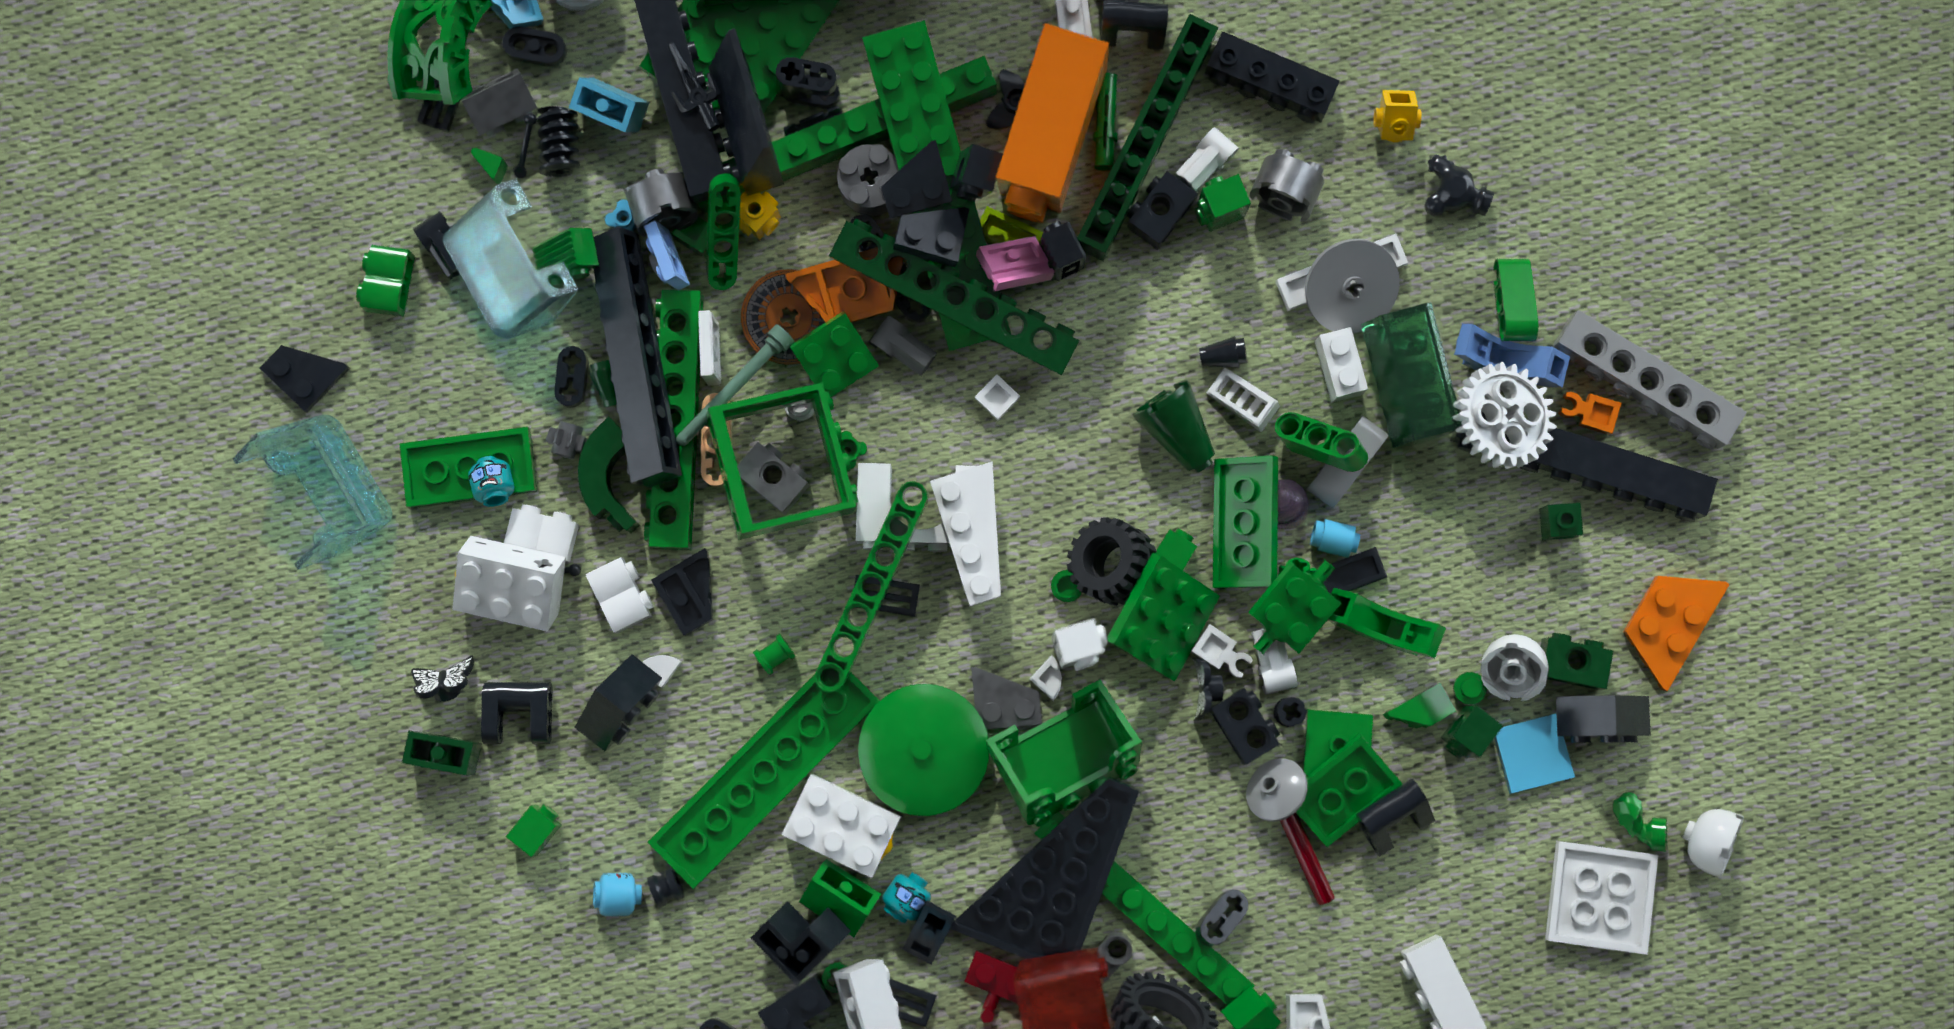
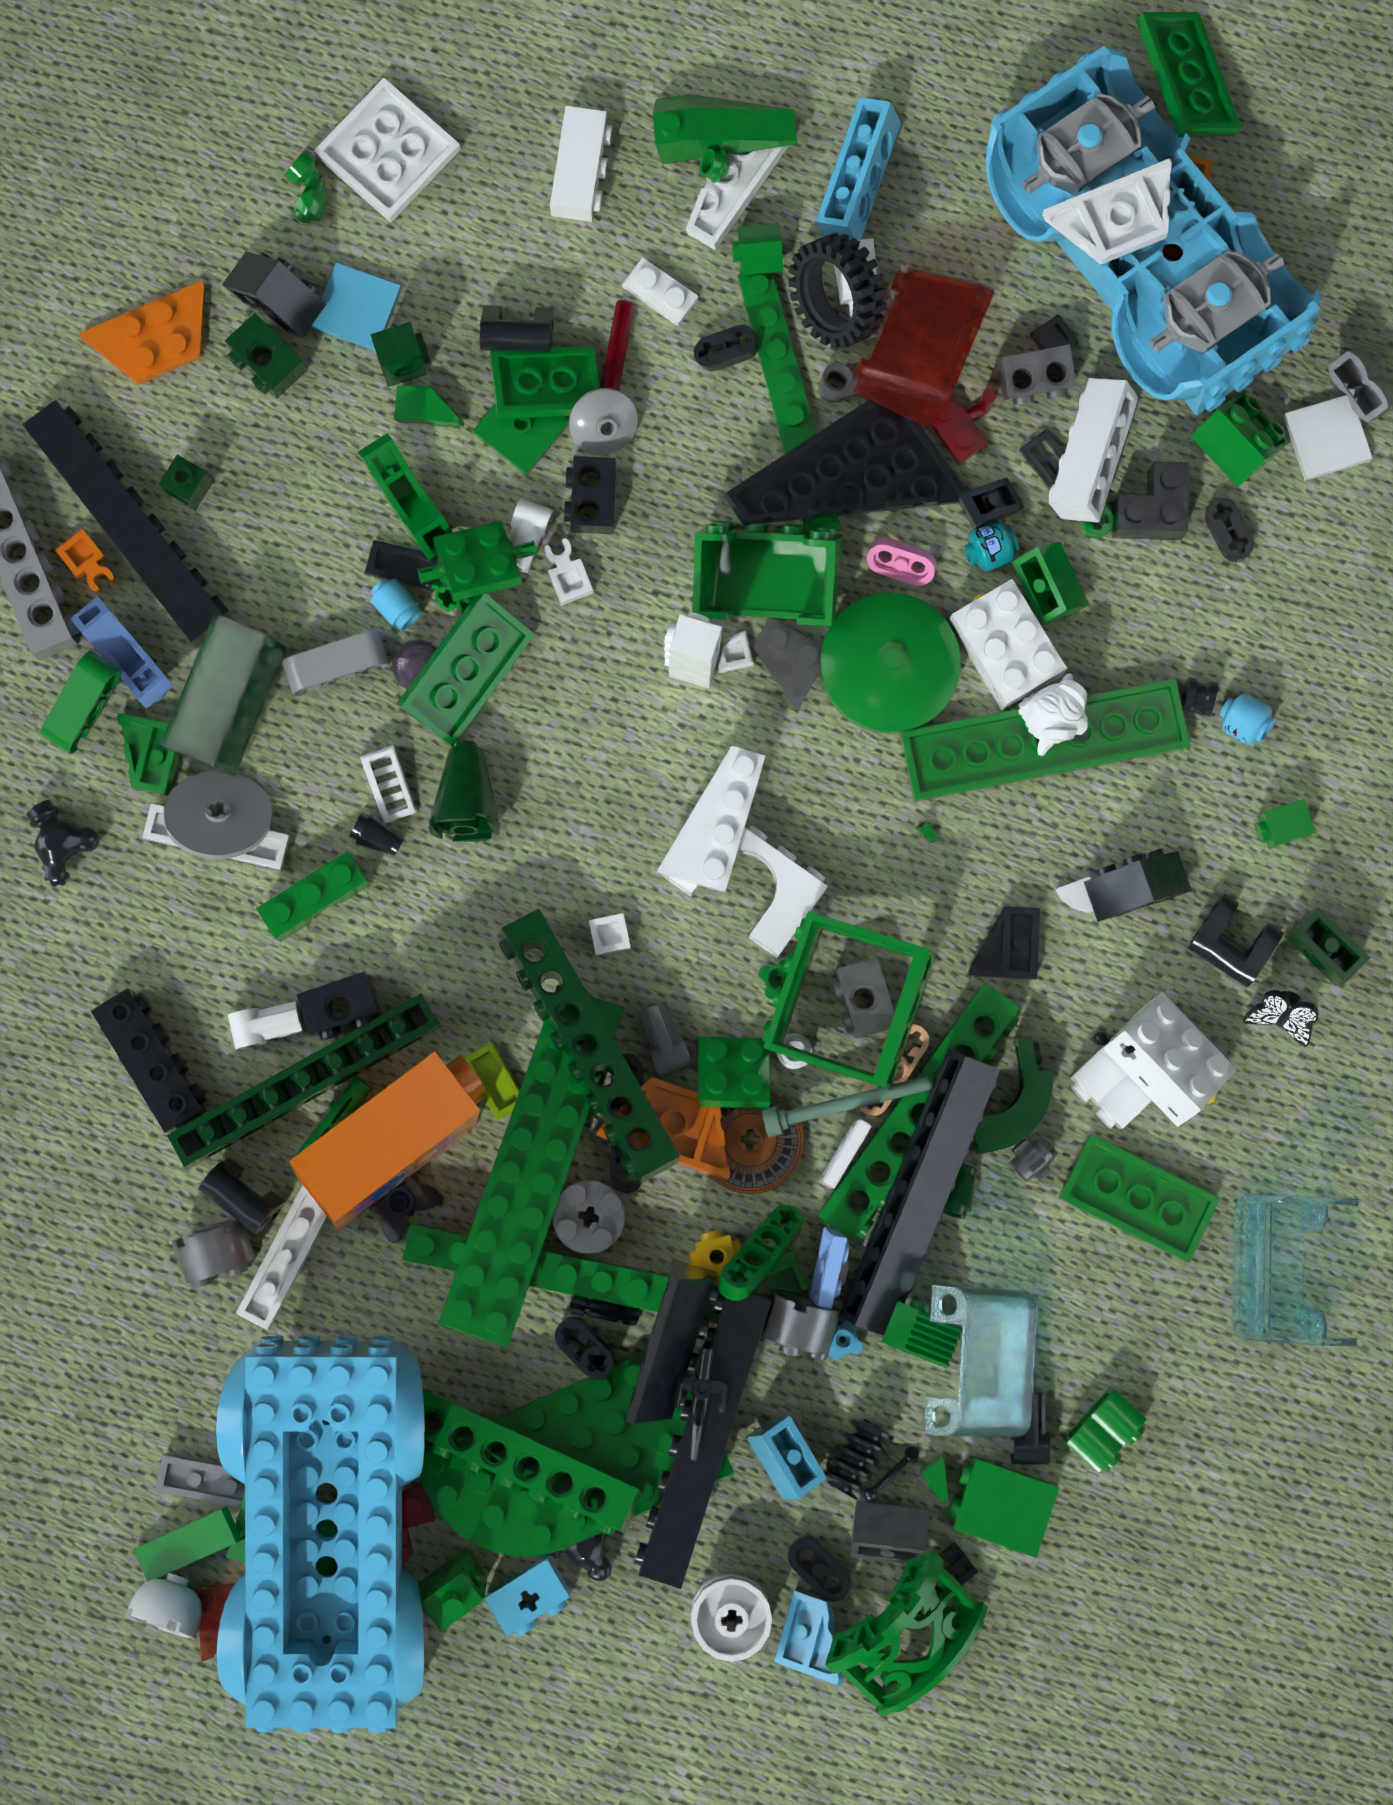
camera: 155 degrees left, 0 degrees up
(303, 375) = (1240, 1393): black wing -> none
(428, 177) = (1002, 1506): none -> green brick
(491, 481) = (1127, 1164): teal head -> none
(563, 375) = (982, 1214): black beam -> none
(619, 595) = (1074, 984): white brick -> none
(768, 793) = (1055, 713): none -> white hair
(774, 654) = (968, 837): green bush -> none
(797, 944) = (1113, 564): black brick -> none
(811, 639) = (925, 830): none -> green piece
(859, 598) = (856, 822): green beam -> none
(895, 597) = (810, 804): black tile -> none
(917, 184) = (550, 1172): black wing -> none
(933, 235) = (569, 1111): black wing -> none
(968, 837) = (901, 563): none -> bright pink plate
(975, 172) = (491, 1139): black brick -> none
(1014, 263) = (510, 1041): bright pink plate -> none
(1062, 250) = (458, 1025): black brick -> none
(1063, 587) = (663, 723): green plate -> none
(1092, 551) = (633, 723): black tyre -> none
(1163, 617) = (599, 631): green plate -> none
(1177, 547) = (549, 685): green brick -> none
(1209, 688) = (600, 545): black animal -> none
(1222, 202) = (281, 970): green brick -> none
(1237, 275) = (311, 895): none -> green arch
(1287, 185) = (209, 945): flat silver brick -> none
(1299, 708) = (537, 488): black bush -> none
(1306, 930) = (660, 291): none -> white plate
(1331, 451) = (345, 675): green beam -> none
(1341, 364) = (279, 751): white brick -> none
(1397, 115) = (63, 937): yellow brick -> none
(1448, 306) = (150, 764): none -> green wing
(1469, 688) = (371, 397): green plate -> none
(1504, 415) = (170, 600): white gear -> none
(1514, 667) = (320, 384): white cylinder -> none
(1713, 839) = (257, 131): white cylinder -> none

